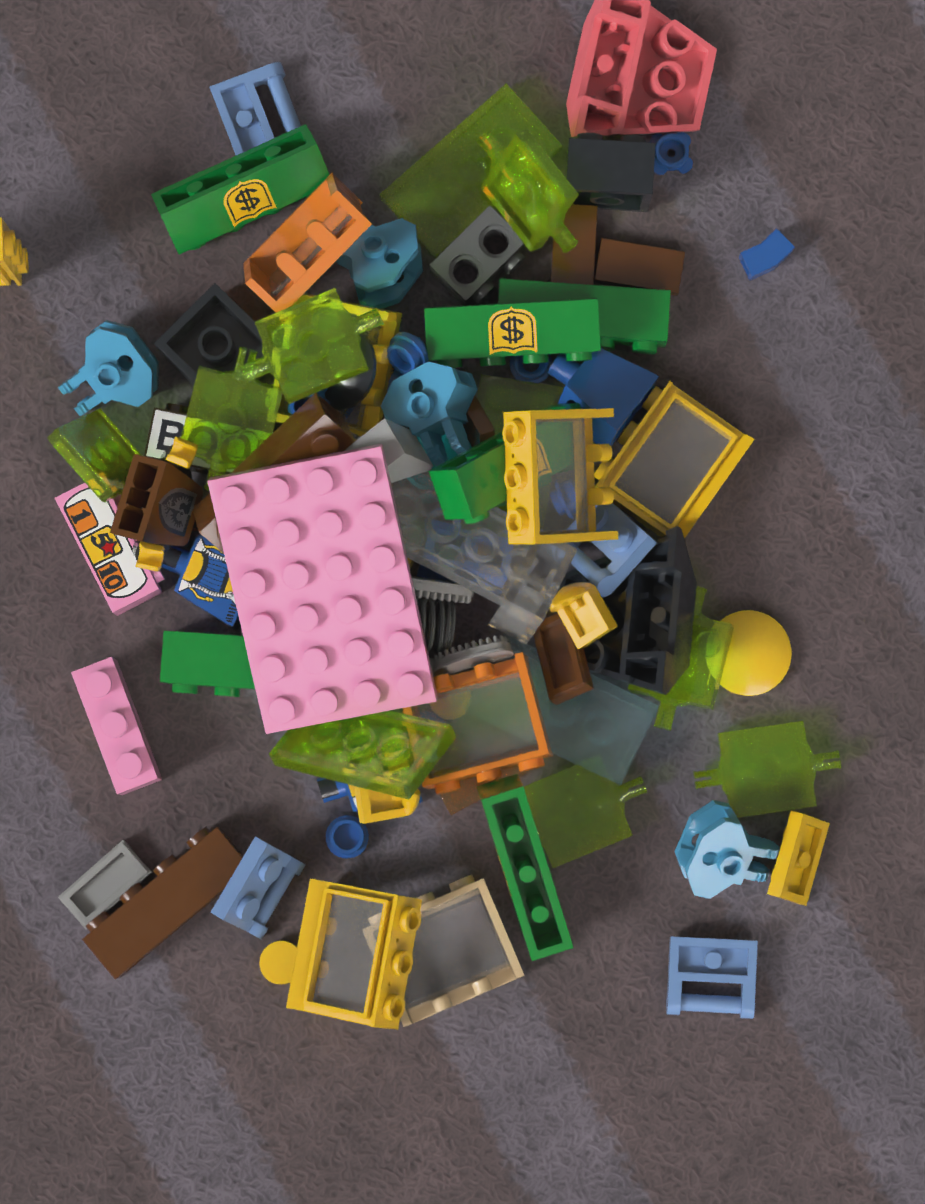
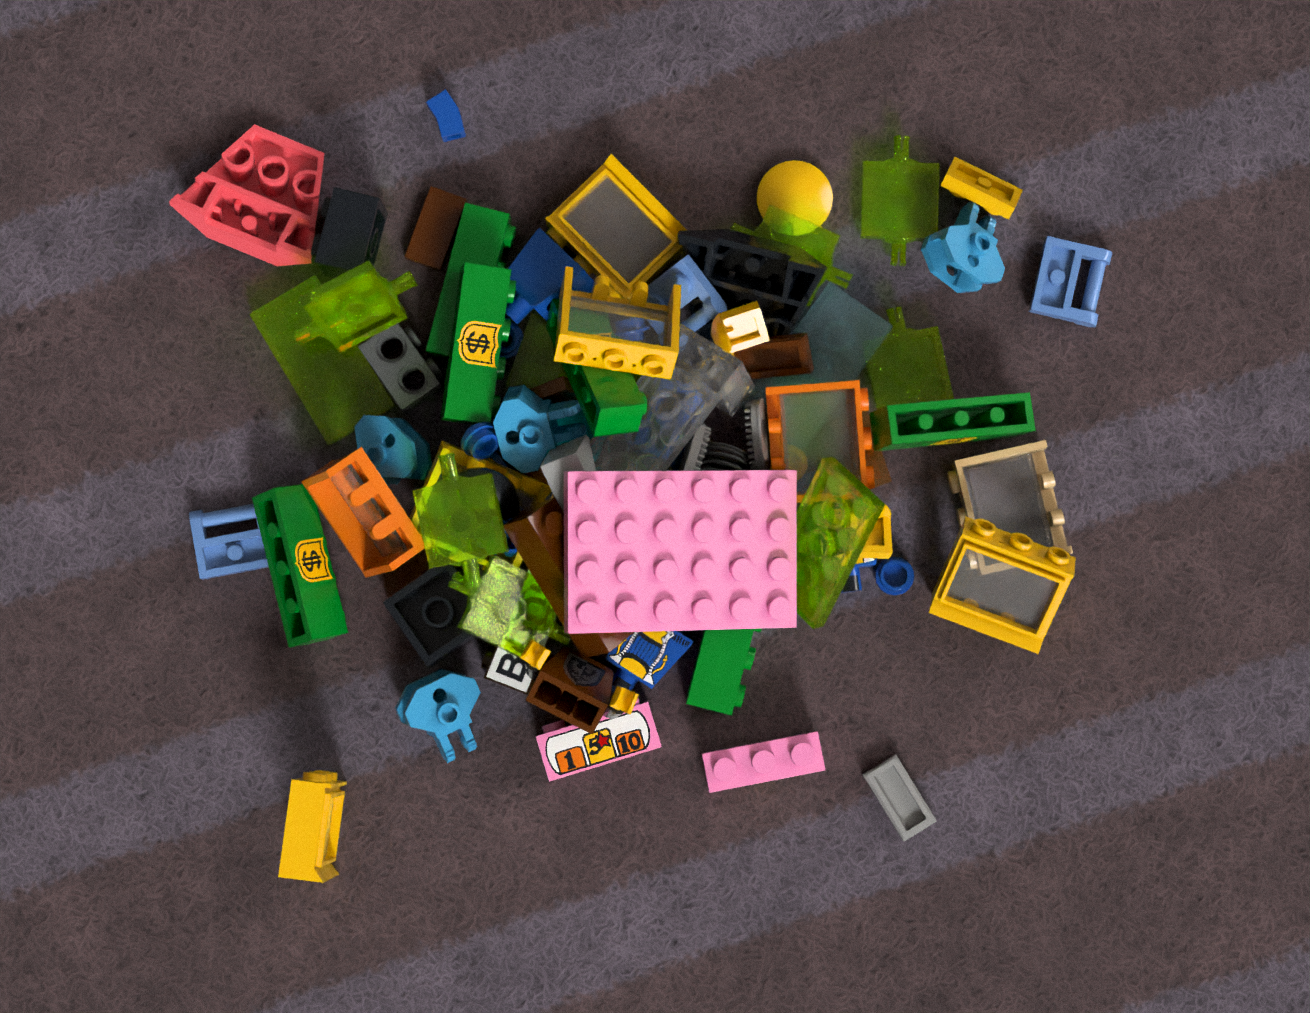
camera: 80 degrees left, 0 degrees up
(96, 452) = (516, 735): clear neon green plate -> none
(165, 904) = (926, 744): reddish brown brick -> none
(256, 887) = (928, 661): medium blue plate -> none
(278, 962) = (994, 654): yellow tile -> none
(577, 264) = (428, 281): reddish brown tile -> none
(680, 145) = (335, 172): blue plate -> none

